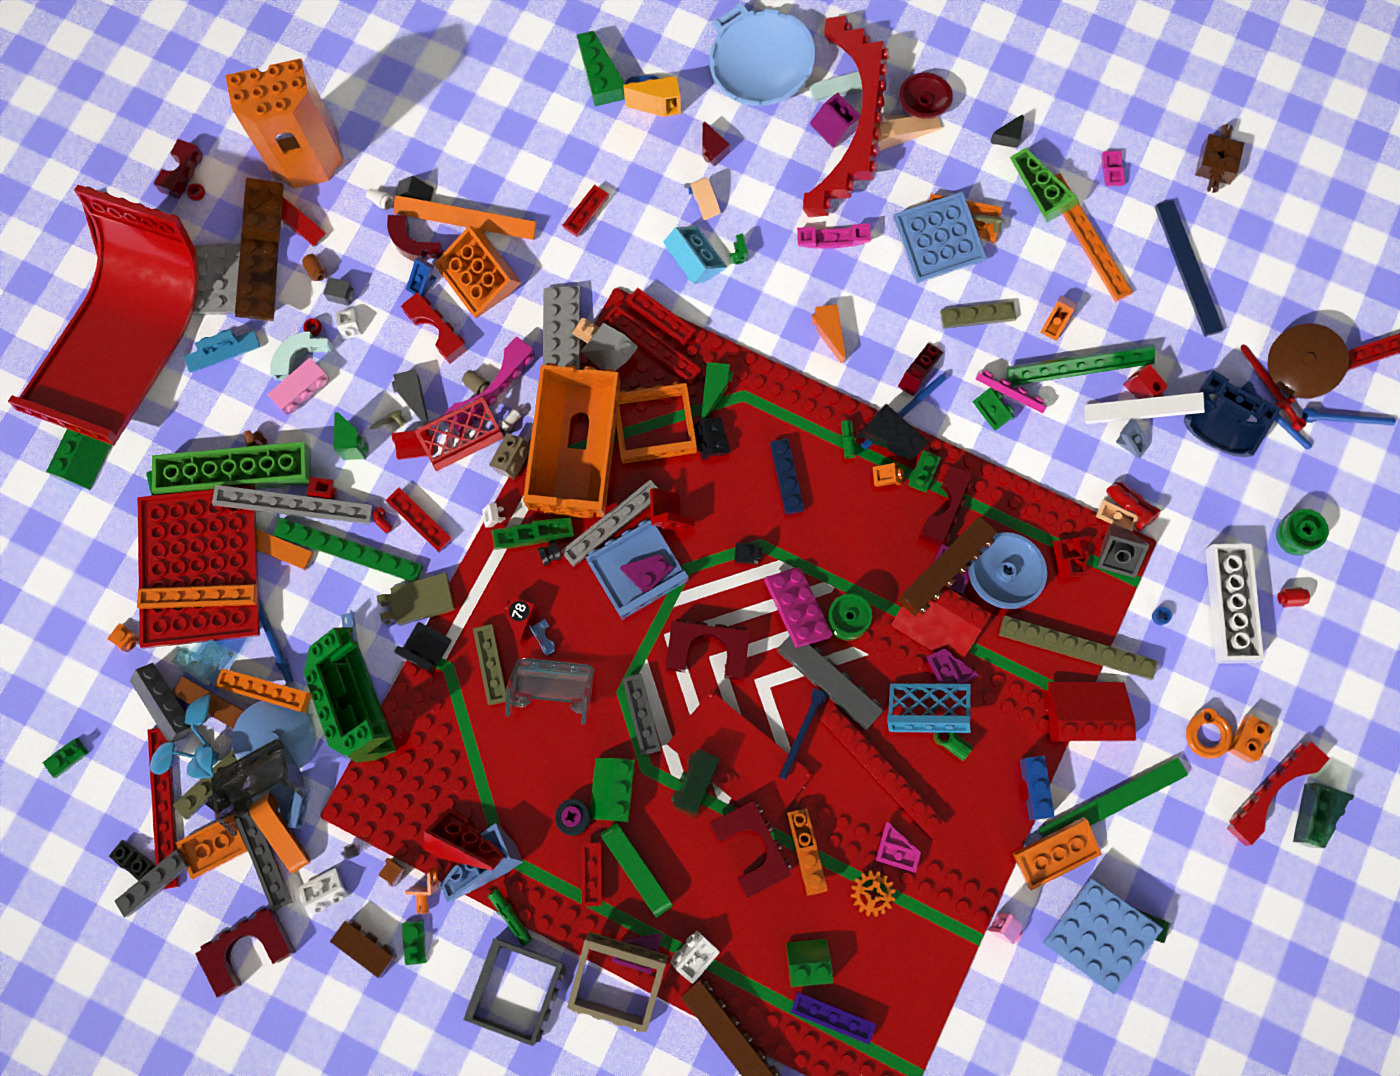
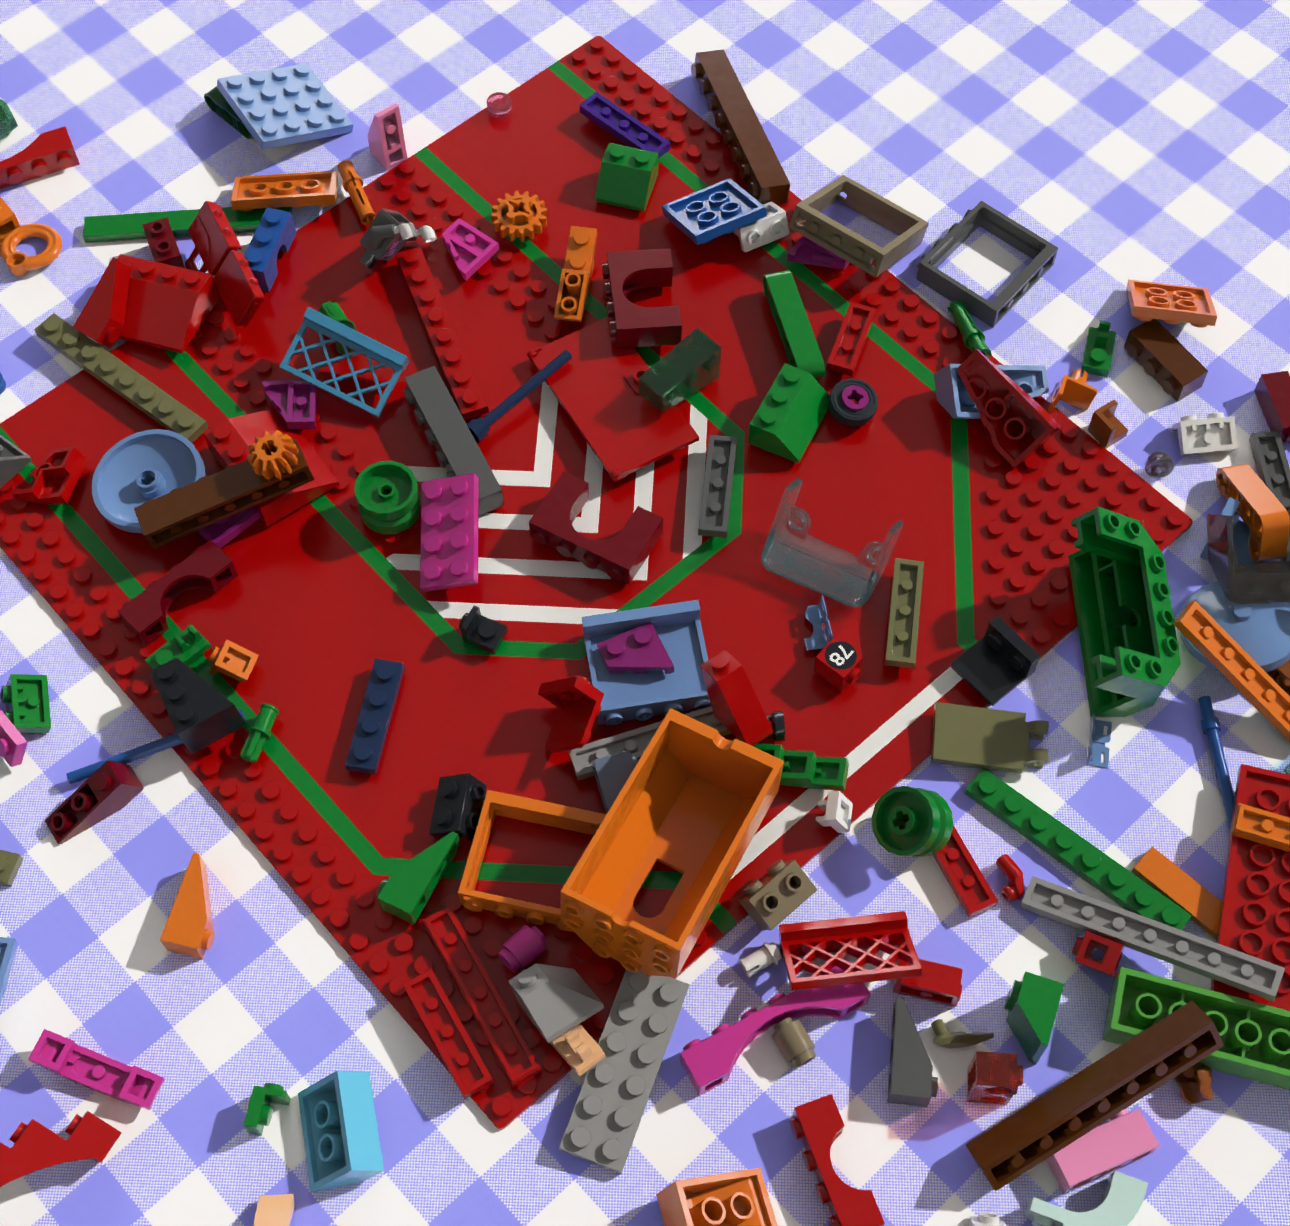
camera: 160 degrees left, 15 degrees down
(304, 401) = (1094, 1095): none -> reddish brown brick
(362, 396) = (993, 1078): none -> clear red brick
(367, 997) = (1171, 303): none -> orange plate
(444, 521) = (912, 821): none -> green wheel
(568, 543) = (734, 699): none -> red slope
(625, 481) = (611, 775): none -> sand blue slope
(640, 372) = (522, 948): none -> dark pink brick
(729, 950) = (714, 211): none -> blue plate
(928, 583) = (273, 455): none -> orange gear
(941, 1007) = (499, 104): none -> clear pink tile
(954, 829) = (388, 235): none -> dark grey torso
(1022, 890) = (353, 185): none -> orange pin
(1072, 770) = (218, 250): none -> red piece
(1112, 765) = (163, 243): none -> dark red brick
(1116, 690) = (106, 308): none -> red slope

